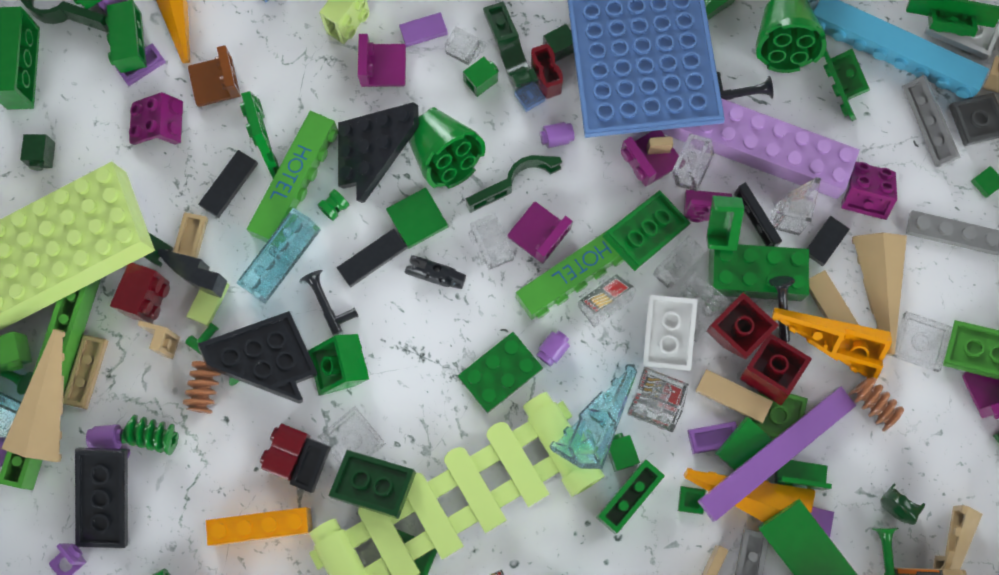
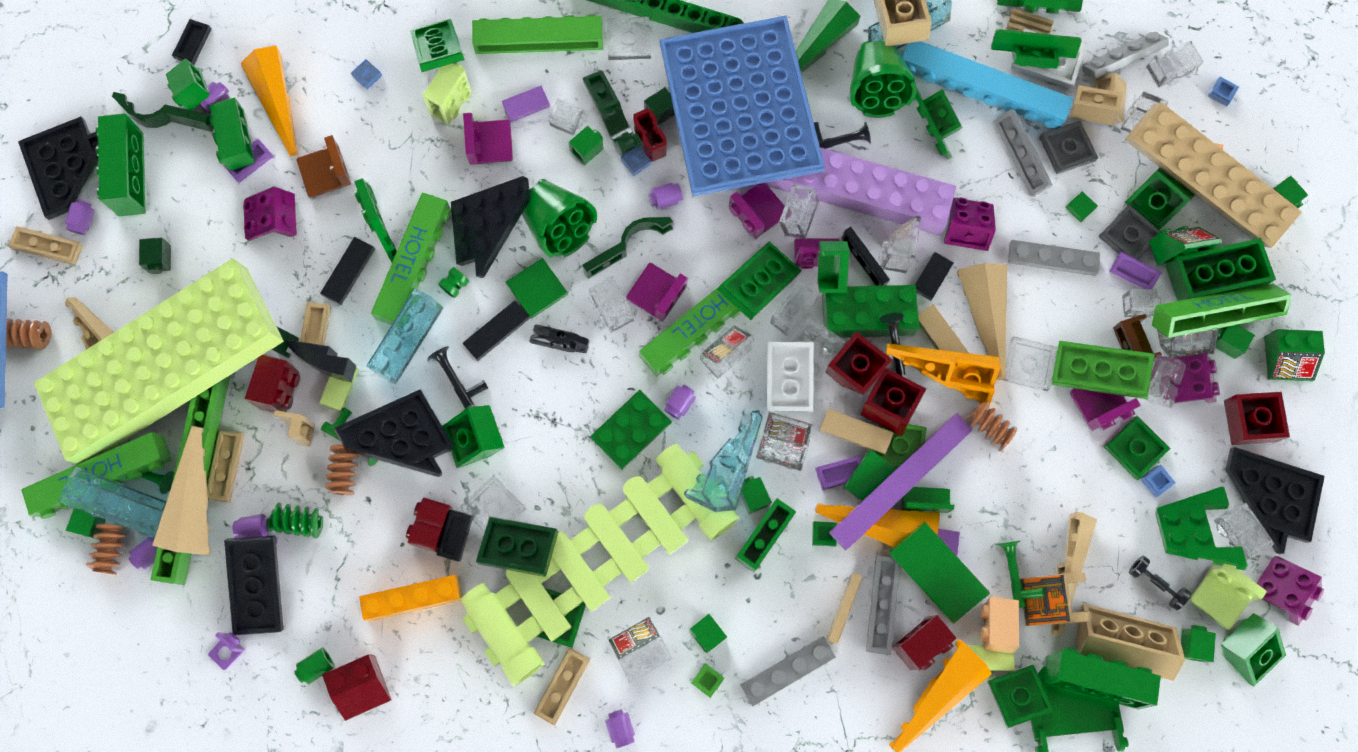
camera: 10 degrees left, 0 degrees up
(659, 145) = (765, 197): tan tile -> none
(900, 506) = (1020, 520): dark green hair -> none

